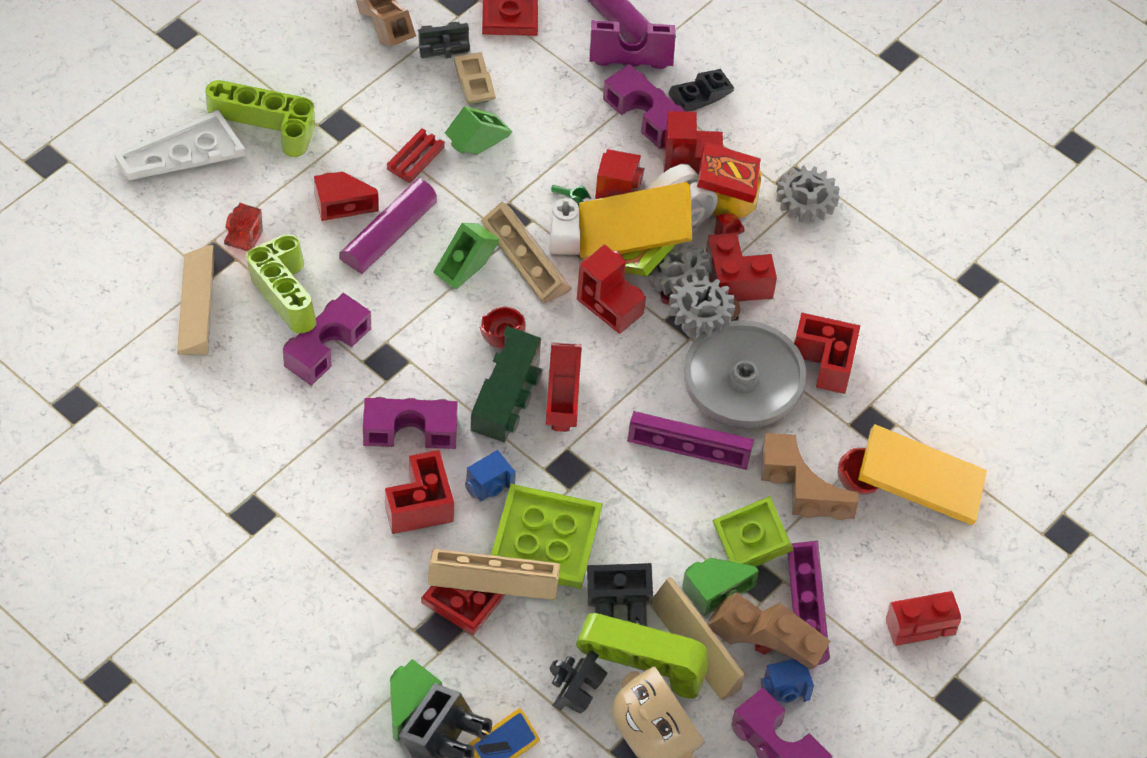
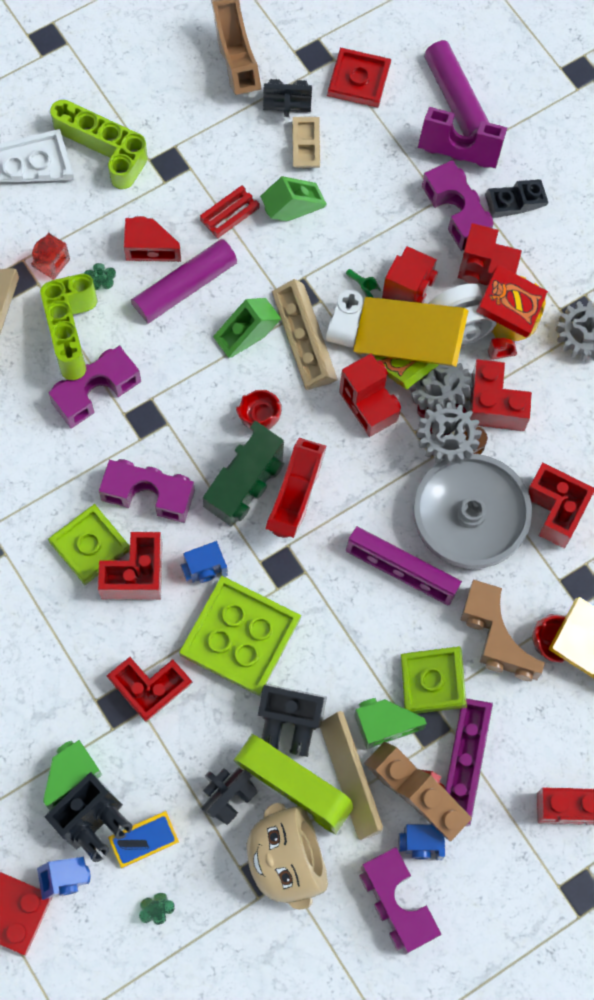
camera: 15 degrees right, 15 degrees up
(306, 238) = (102, 276): none -> clear green plant
(361, 486) = (87, 541): none -> lime tile
(493, 574) = (178, 668): tan slope -> none

